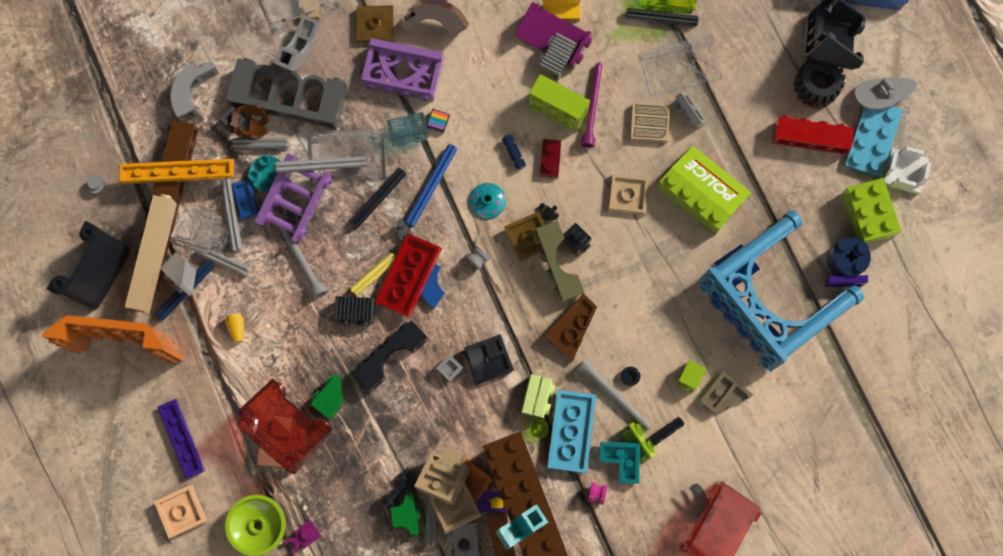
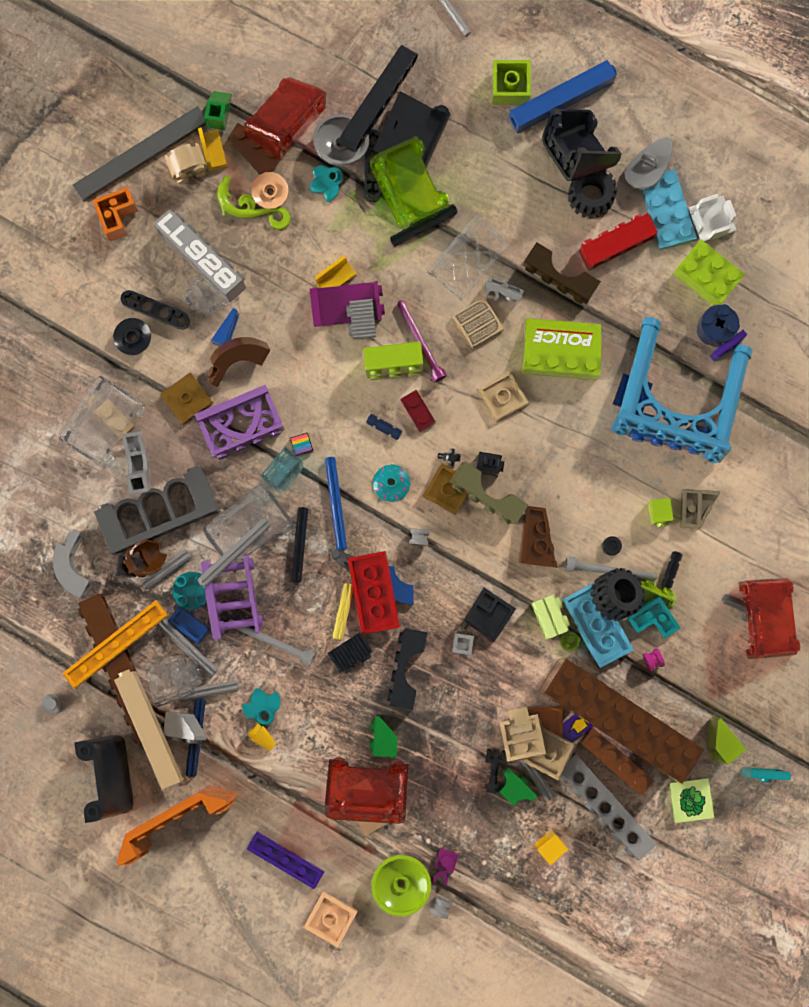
camera: 35 degrees left, 5 degrees up
(254, 301) = (262, 703): none -> teal plate
(521, 527) = (625, 734): teal brick -> none
(592, 416) = (628, 588): none -> black tyre
(755, 150) = (540, 263): none -> dark brown arch

